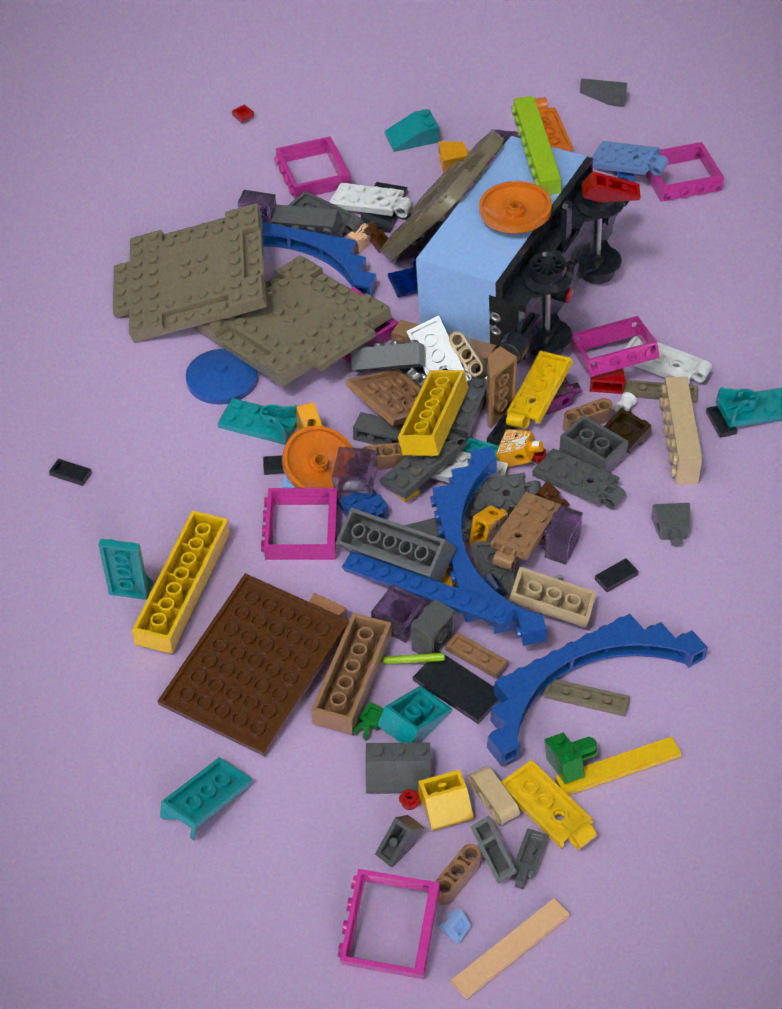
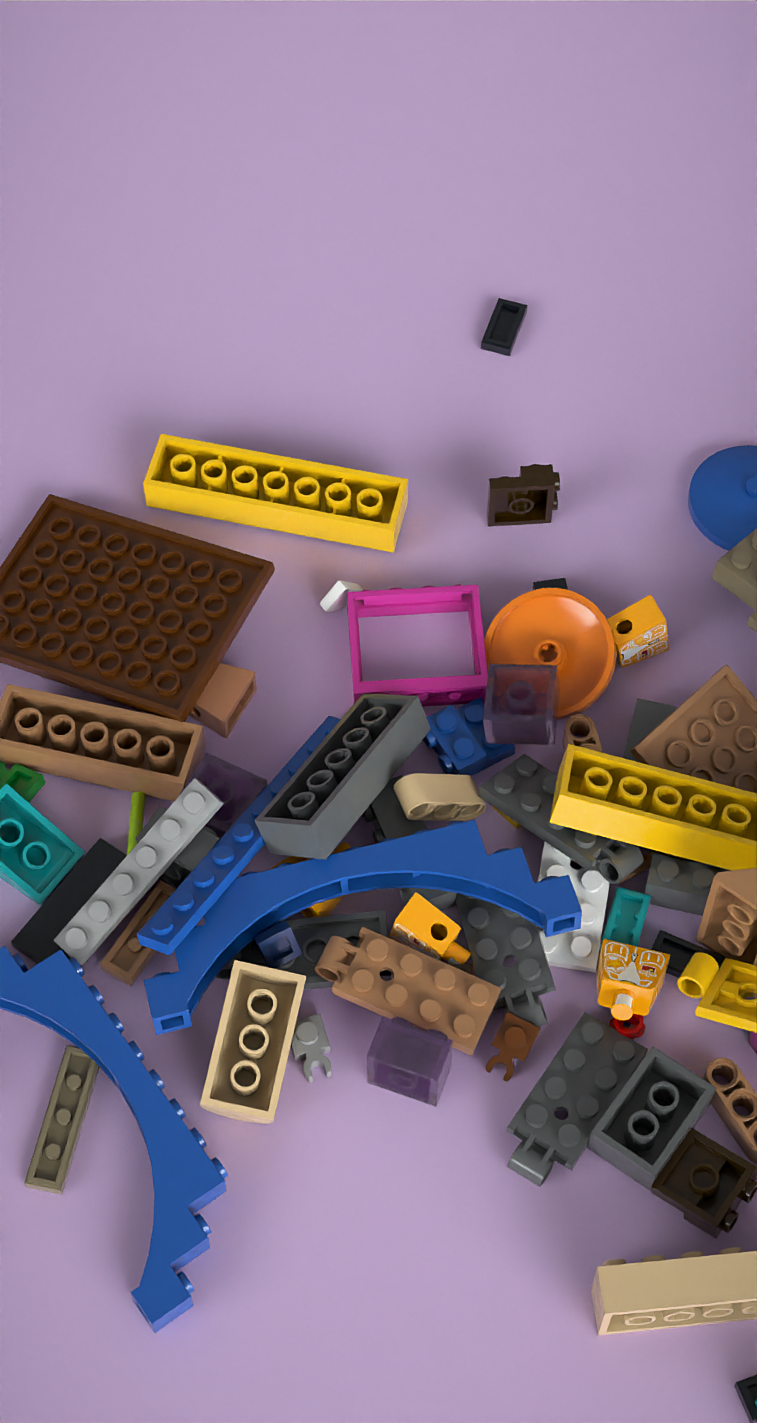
camera: 85 degrees right, 10 degrees up
(124, 569) = (269, 414): teal plate -> none
(209, 462) = (523, 498): none -> dark brown plate
(258, 554) = (337, 596): none -> white tile
(259, 420) = (653, 560): teal plate -> none
(407, 512) = (439, 797): none -> tan beam
(452, 638) = (138, 871): none -> light grey plate
(616, 575) = (341, 1170): black tile -> none
(672, 521) = (473, 1274): dark grey torso -> none

